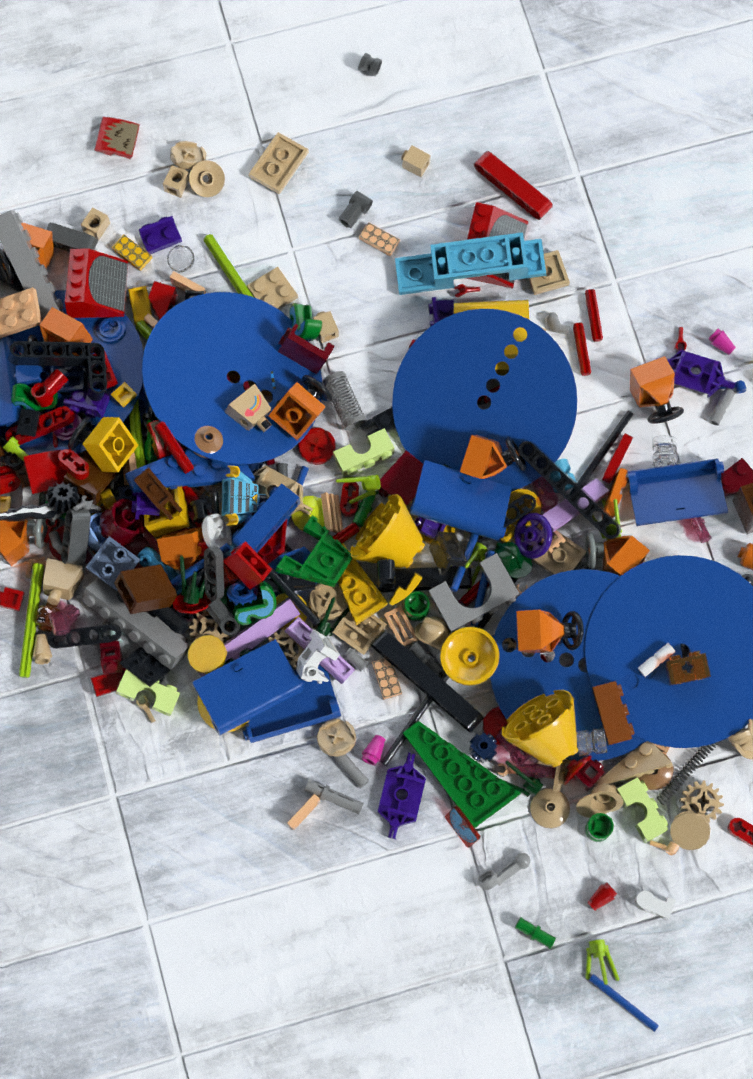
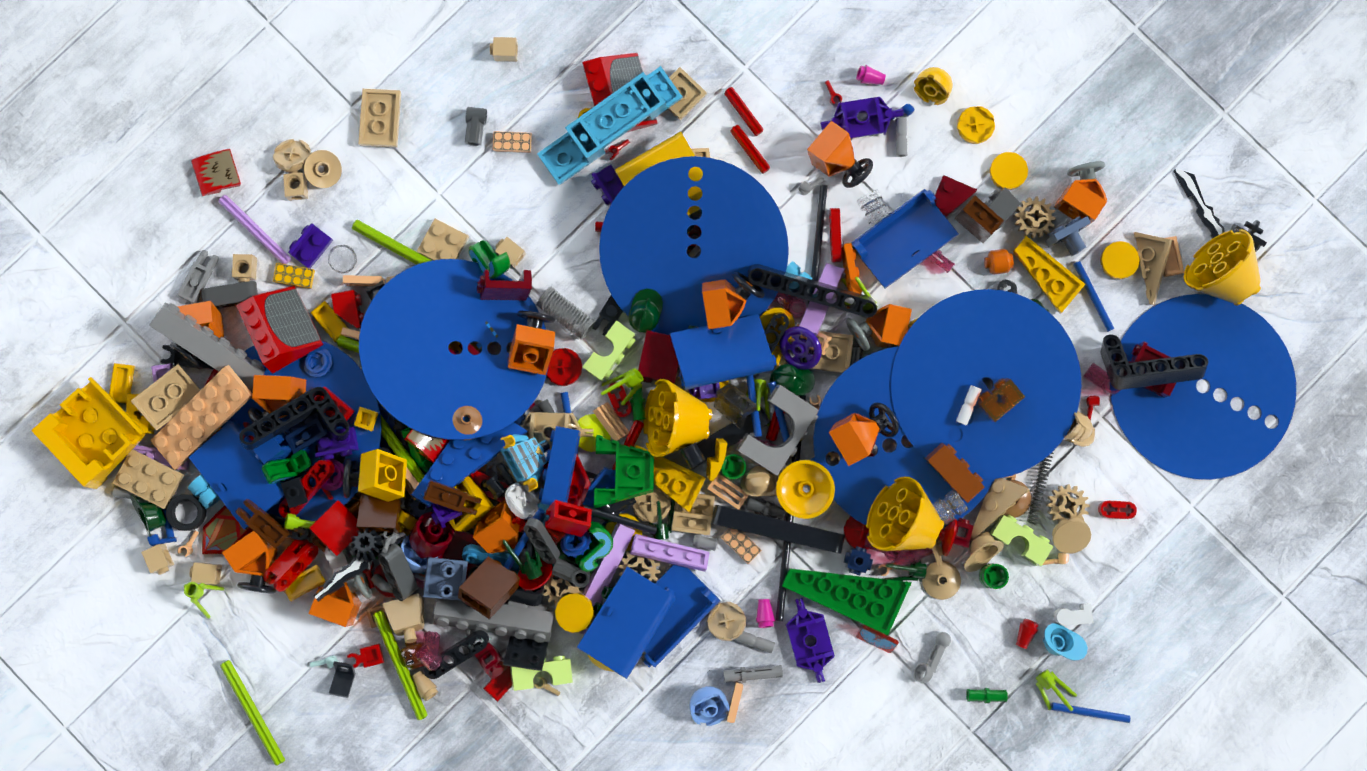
camera: 30 degrees left, 10 degrees up
(44, 391) = (295, 449): red piece -> none
(52, 211) = (197, 277): none -> light grey hinge
(71, 466) = (359, 505): red beam -> none
(121, 199) = (254, 229): none -> lavender axle
(174, 447) = (441, 446): red axle -> none
(250, 409) = (489, 371): tan torso -> none
(278, 801) = (708, 706): none -> light blue cylinder
(318, 649) = (670, 558): white tile -> none
(414, 434) = (645, 310): none -> dark green piece
(513, 185) = (605, 25): red beam -> none
(555, 325) = (714, 139): light grey arm -> none
(613, 407) = (805, 188): none -> light grey hand
(632, 922) = (1064, 642): none -> medium azure piece

